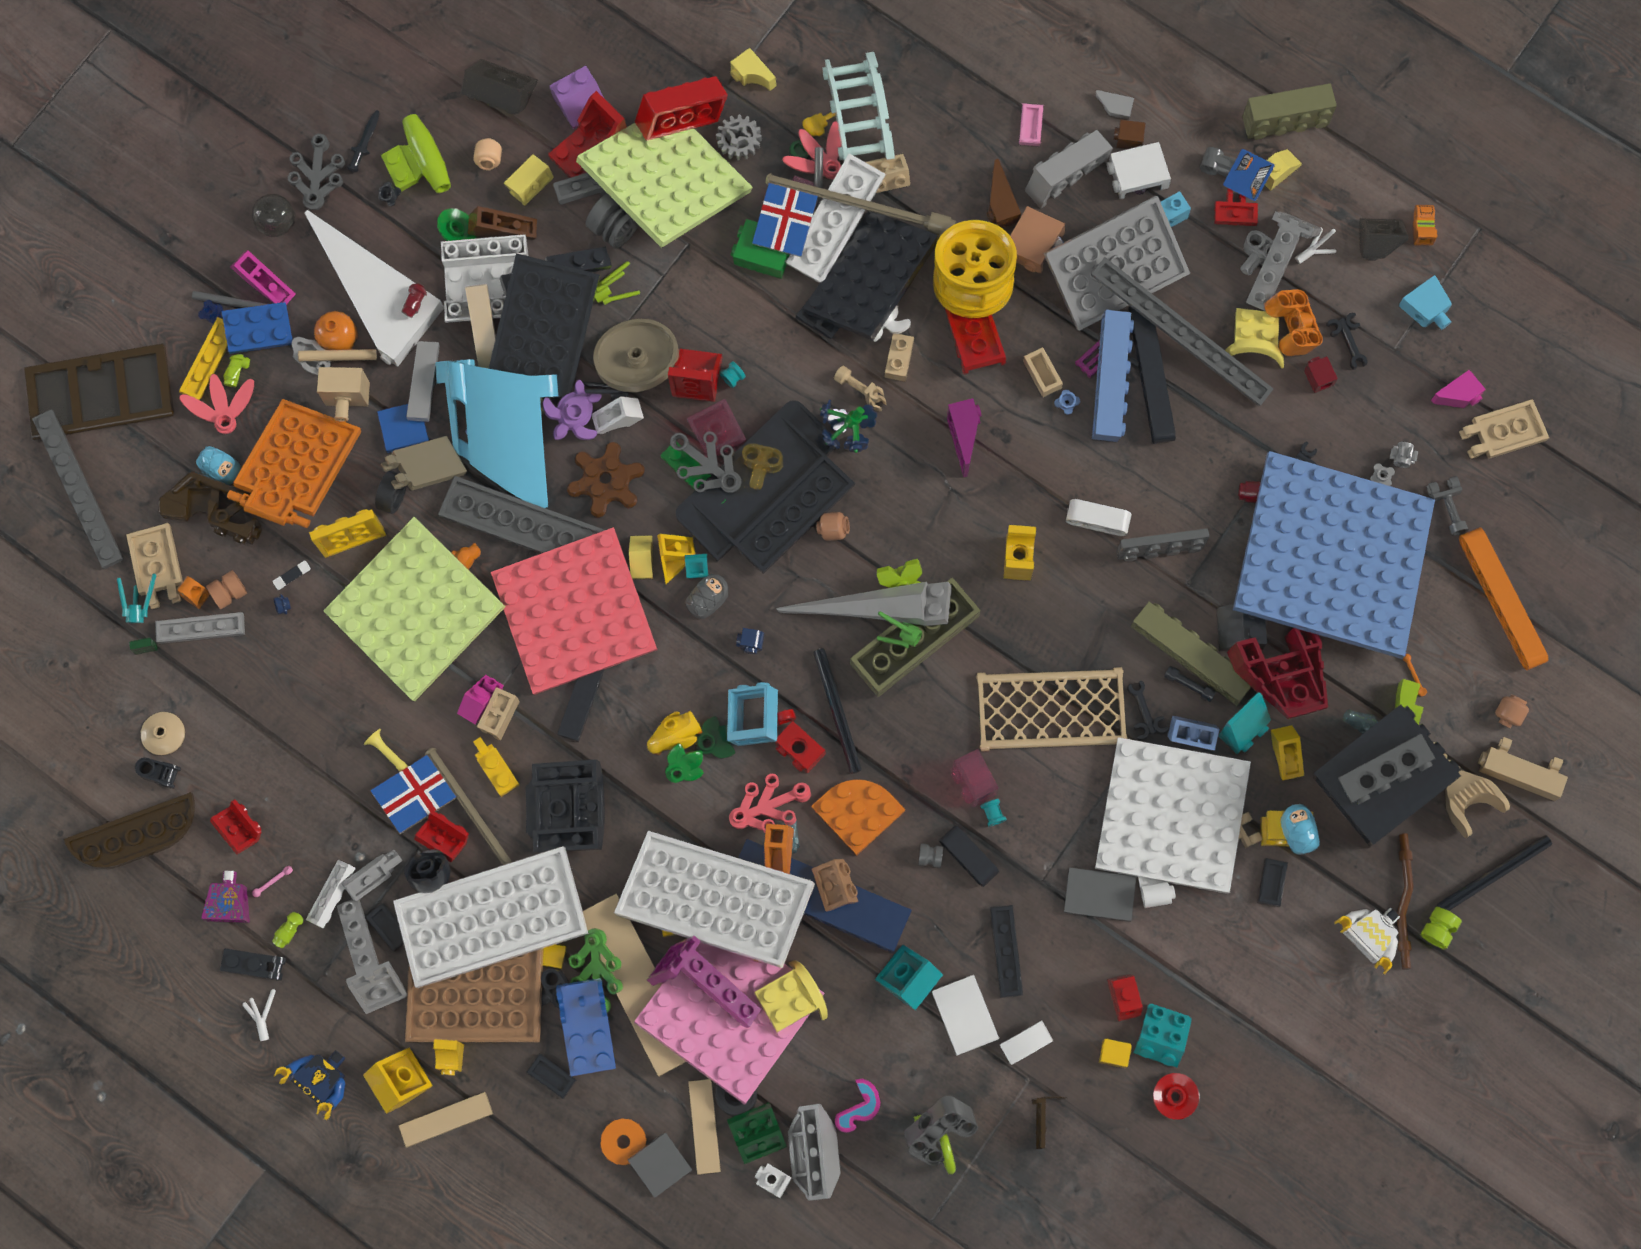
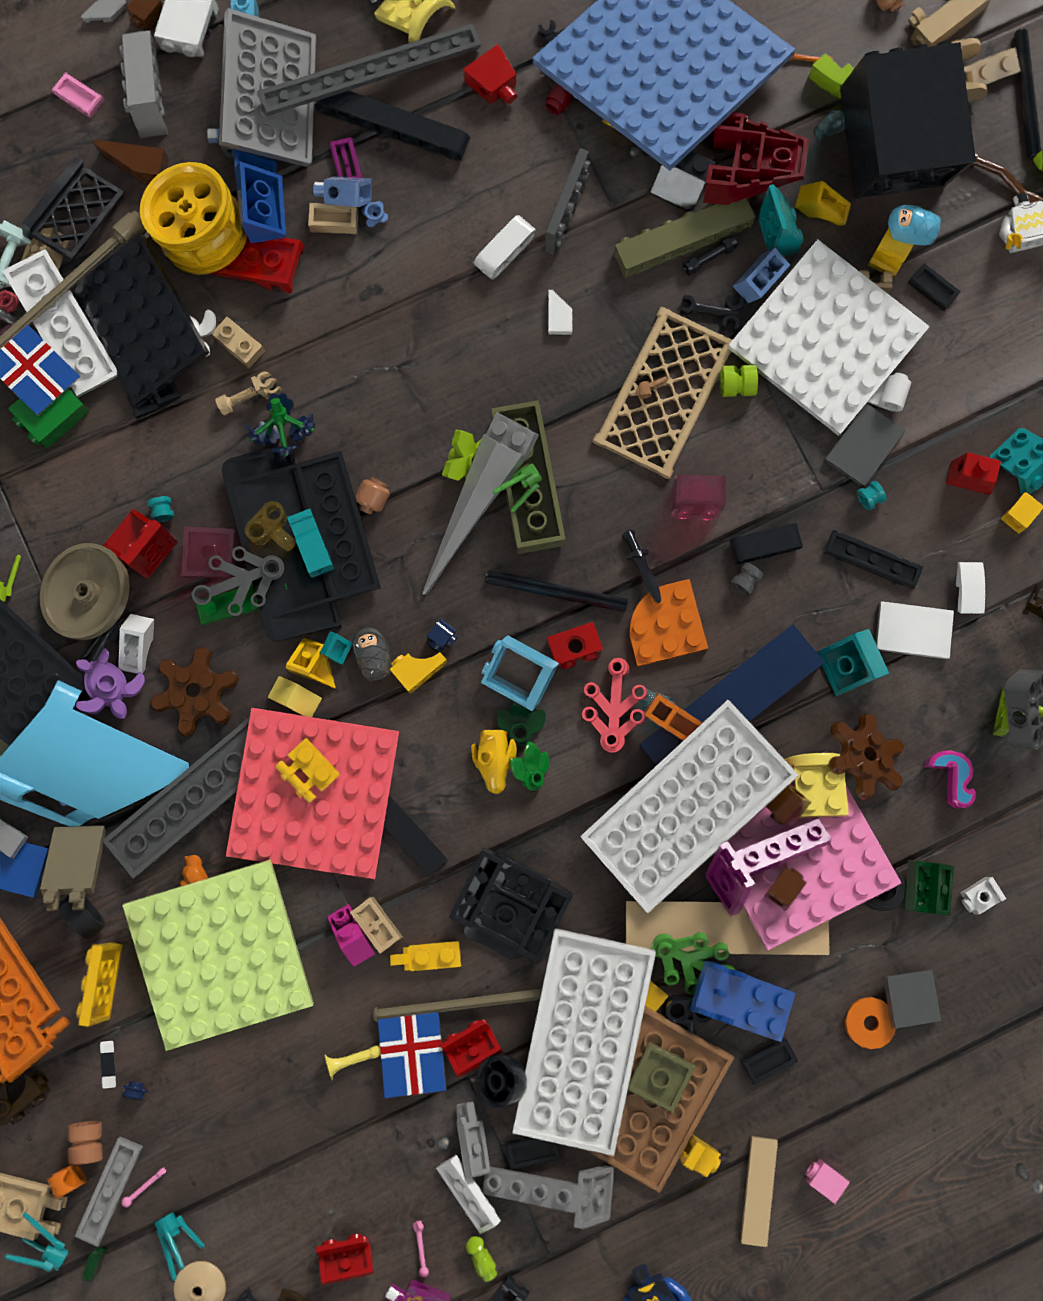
camera: 65 degrees left, 5 degrees up
(194, 685) = (166, 1230): none -> teal plant
(199, 645) = (127, 1201): none -> bright pink hinge
(397, 1080) = (695, 1221): yellow slope -> none
(480, 1167) = (826, 1180): none -> bright pink brick
(493, 992) = (661, 1077): none -> olive tile
(594, 596) = (313, 764): none -> yellow plate
(690, 1008) = (786, 888): none -> reddish brown brick
(704, 1126) = (895, 935): tan tile -> none
(709, 635) = (414, 672): none -> yellow arch
(758, 977) = (788, 806): none -> reddish brown brick
(765, 500) = (310, 543): none -> teal piece
(785, 717) = (537, 641): red tile -> none
(814, 1152) = (979, 843): light grey wedge -> none
(821, 1027) = (854, 760): none -> reddish brown plate
(835, 884) = (733, 682): medium nougat bracket -> none
(900, 760) = (639, 557): none -> black sword
(931, 157) = (53, 201): none -> black fence
(963, 424) = (349, 320): magenta slope -> none
(993, 812) = (737, 498): teal bush -> none
(1019, 540) = (490, 326): yellow piece -> none
(1023, 306) = (259, 196): none -> blue slope
(1034, 236) = (196, 144): nougat panel -> none
(1042, 689) = (644, 387): none -> medium nougat hand
(1058, 920) = (871, 495): none -> teal wheel
(1067, 591) = (559, 315): none -> white tile
(1069, 369) = (344, 191): none -> medium blue torso
(1093, 762) = (739, 380): none -> lime wheel
(1111, 376) = (374, 157): medium blue brick -> none
(1238, 429) = (492, 76): none -> red torso
(1351, 781) = (929, 65): dark grey brick -> none
(1495, 830) = (993, 67): none -> tan hinge

